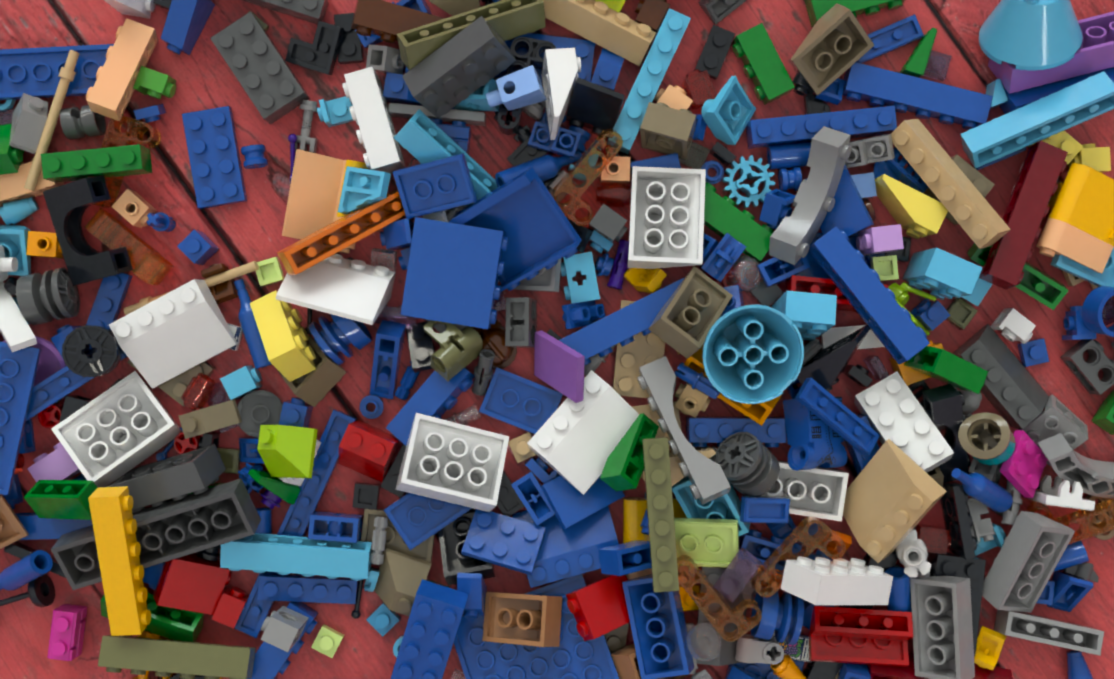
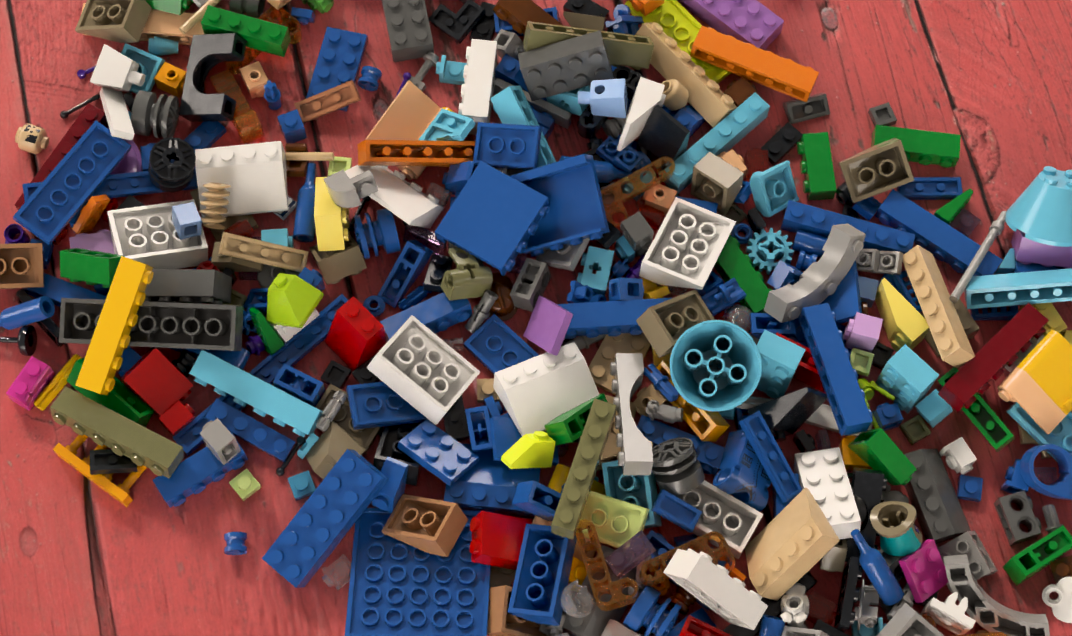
camera: 20 degrees right, 20 degrees down
(36, 435) = (91, 213): none -> orange plate
(93, 619) = (56, 384): none -> yellow axle
(137, 406) = (186, 220): none -> medium blue brick
(159, 377) = (214, 205): none -> tan piece
(222, 203) = (328, 101): none -> nougat tile
(233, 407) = (263, 252): none -> tan tile
(293, 317) = (348, 192): none -> light grey brick
(586, 46) = (675, 94): none -> tan head
(596, 511) = (530, 452): none -> neon yellow slope
(621, 292) = (625, 289): none -> blue brick
(712, 410) = (664, 412): none -> light grey arm
(973, 62) = (994, 230): none -> light grey bar

